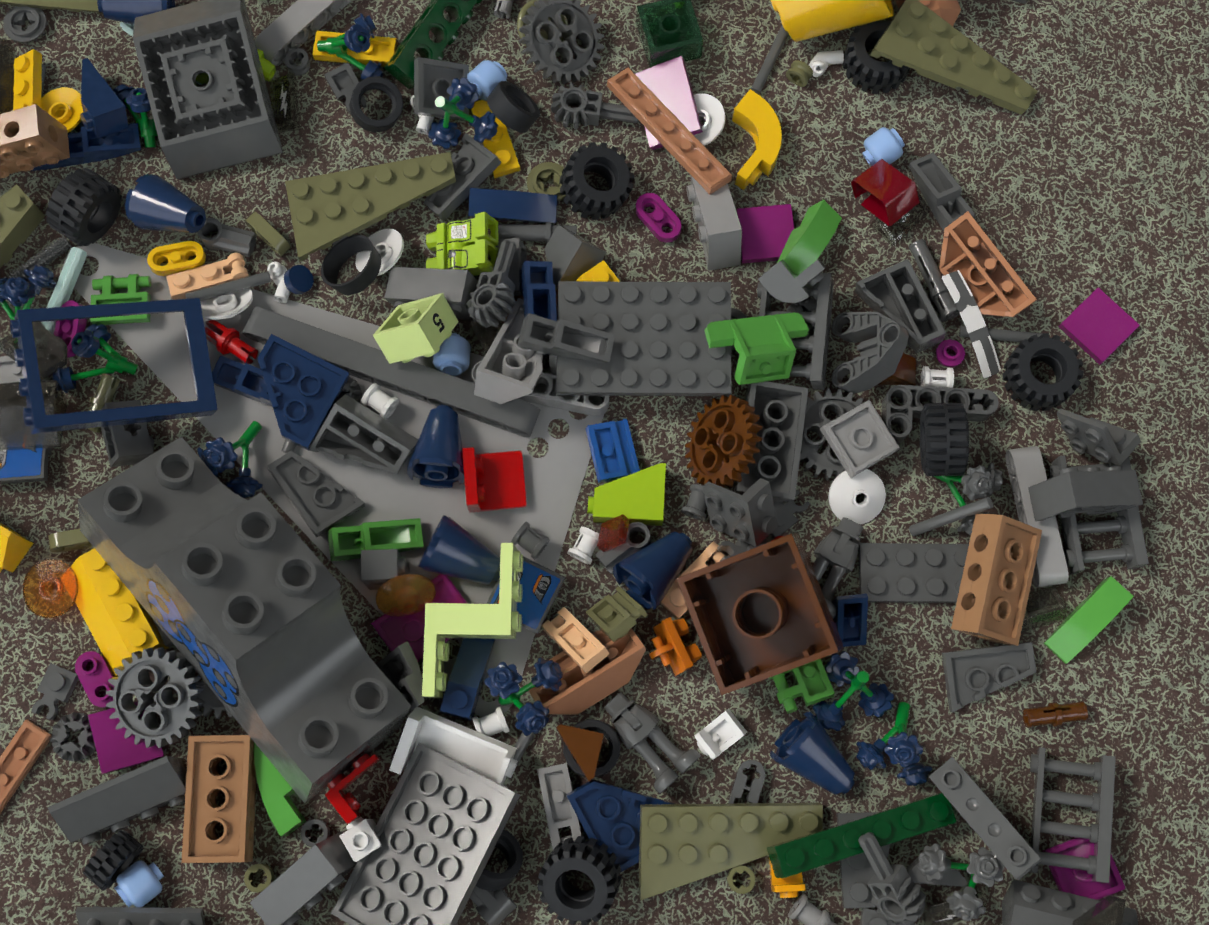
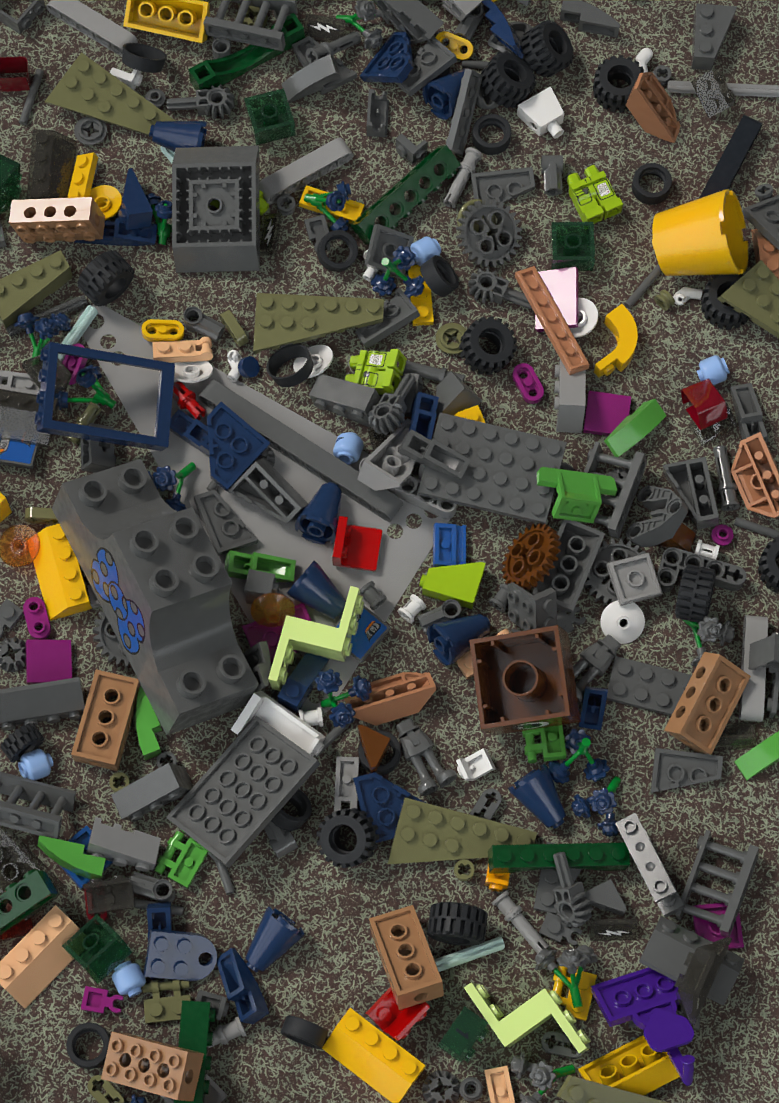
camera: 15 degrees right, 5 degrees down
(109, 285) = (126, 342): bright green plate -> none
(162, 207) = (163, 291): dark blue cone -> none
(174, 714) = (89, 652): dark grey gear -> none
(230, 287) = (194, 361): dark grey bar -> none
(346, 803) = (194, 730): red bracket -> none
(360, 838) = (199, 771): white bracket -> none
(380, 401) = (287, 469): white bush -> none
(416, 329) = (327, 422): yellowish green brick -> none
(513, 205) = (421, 349): dark blue slope -> none
(575, 640) = (387, 671): light nougat plate -> none
(613, 533) = (434, 603): clear red tile -> none
(616, 614) = (421, 661): olive plate -> none
(671, 648) = (455, 695): orange hips -> none
(788, 287) = (608, 455): dark grey brick -> none
(951, 516) = (685, 651): dark grey bar -> none
(973, 322) = (745, 516): sticker -> none
(982, 867) = (636, 894): dark grey plant -> none
(1055, 714) = (727, 812): reddish brown pin -> none

